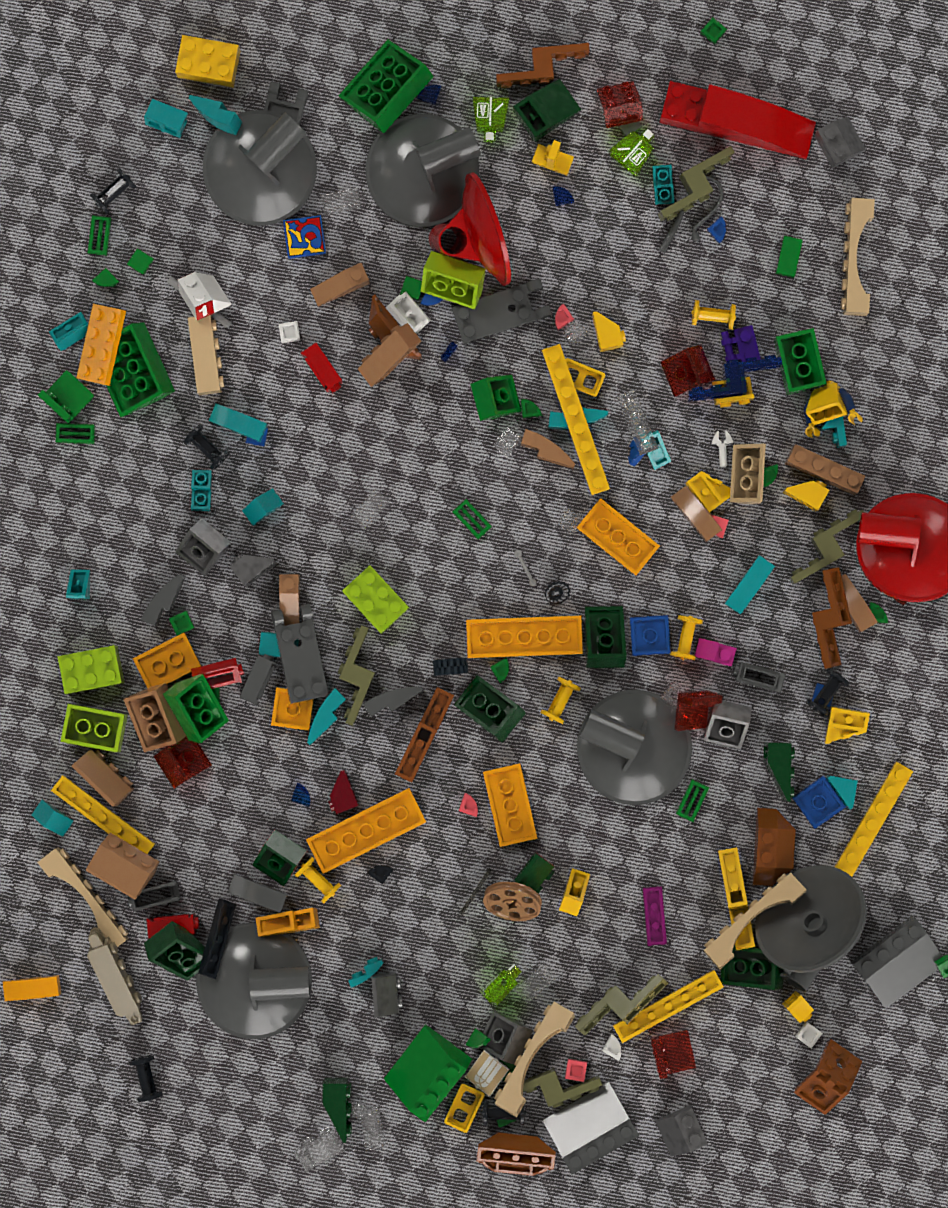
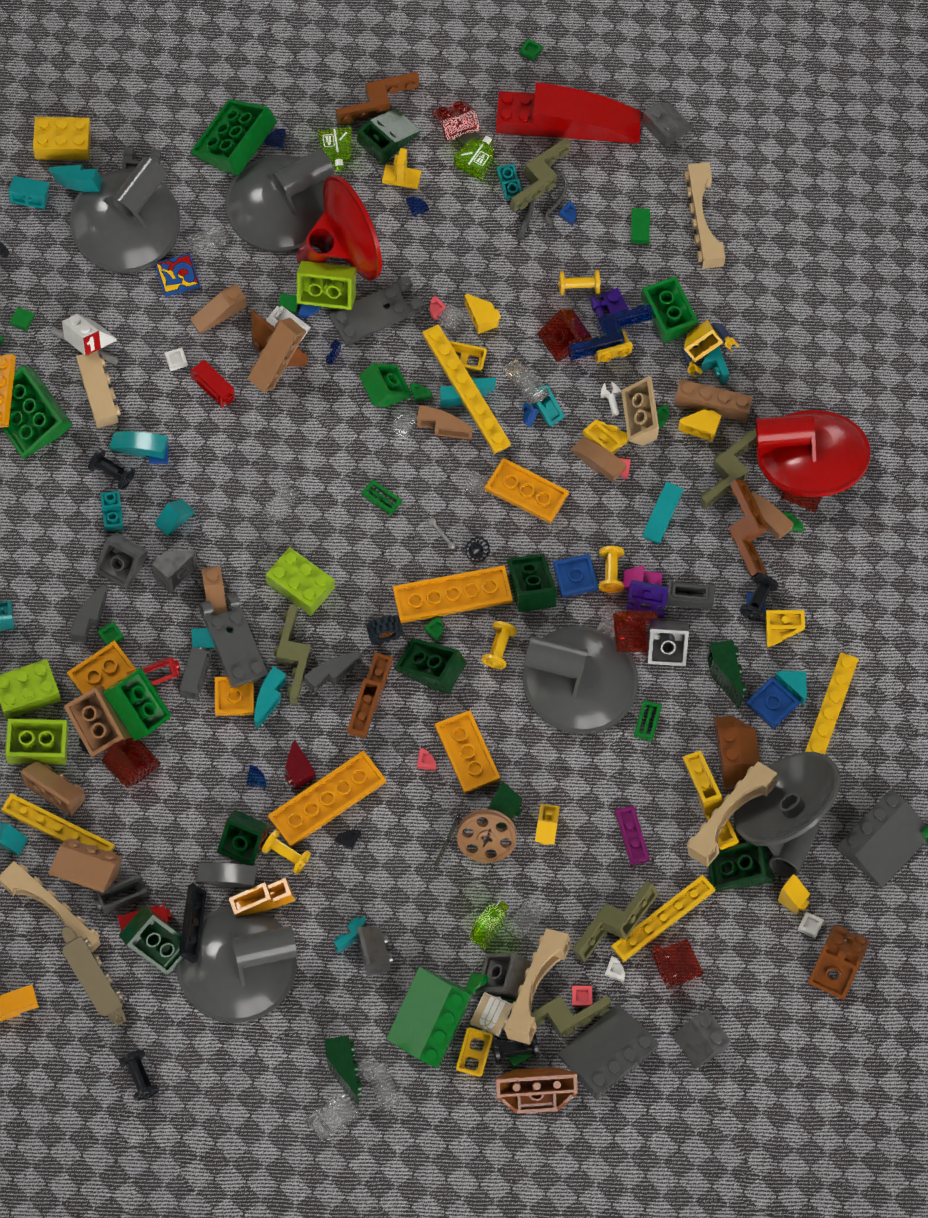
camera: 15 degrees left, 20 degrees down
(716, 676) = (647, 593): none -> dark purple plate

